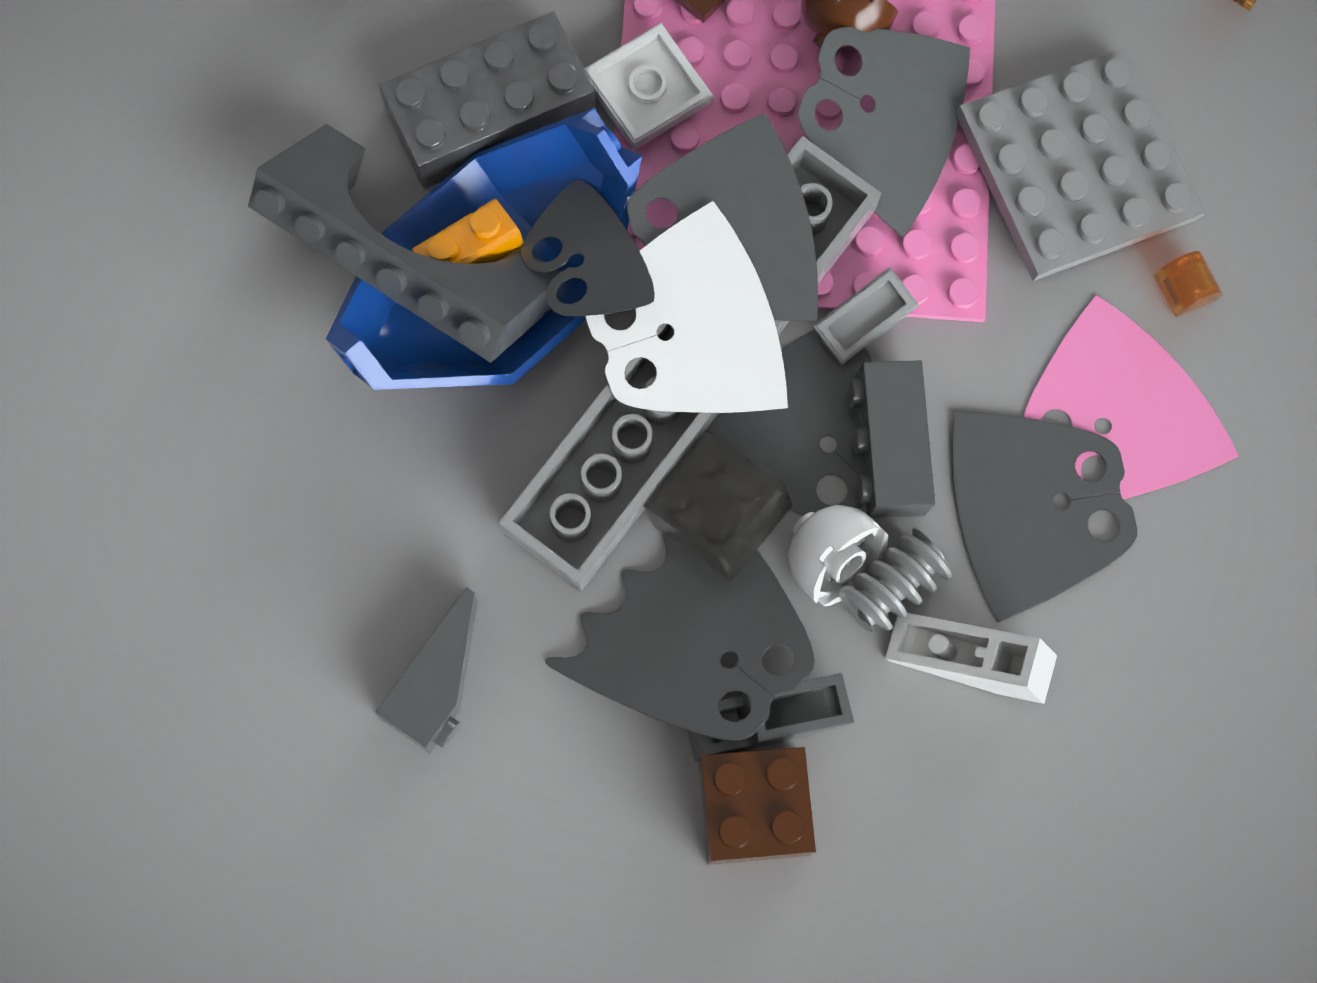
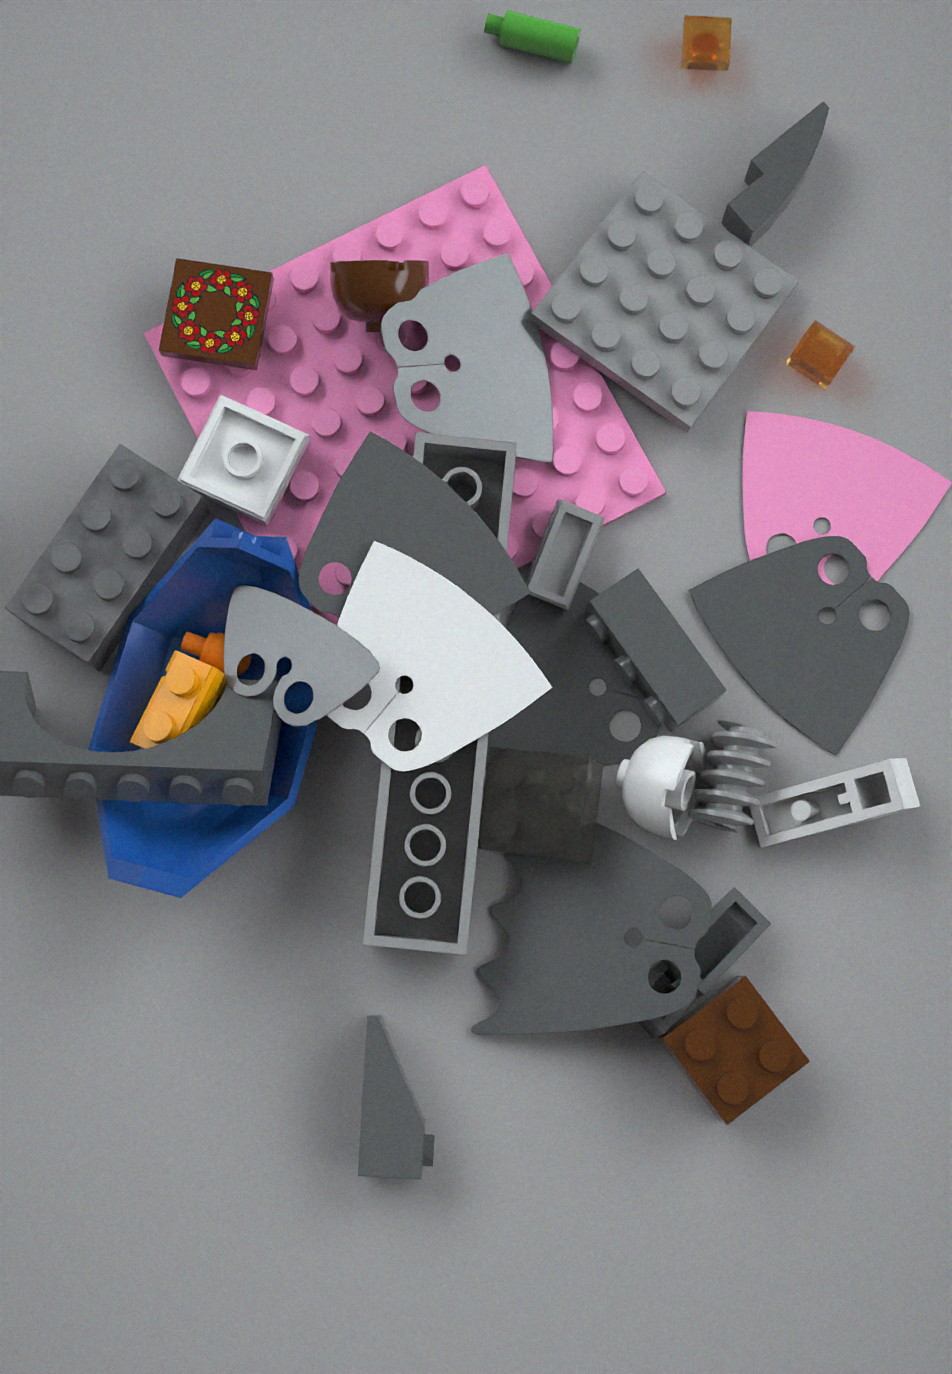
camera: 25 degrees left, 5 degrees up
(525, 220) = (211, 650): none -> orange cylinder
(1237, 117) = (775, 178): none -> dark grey slope

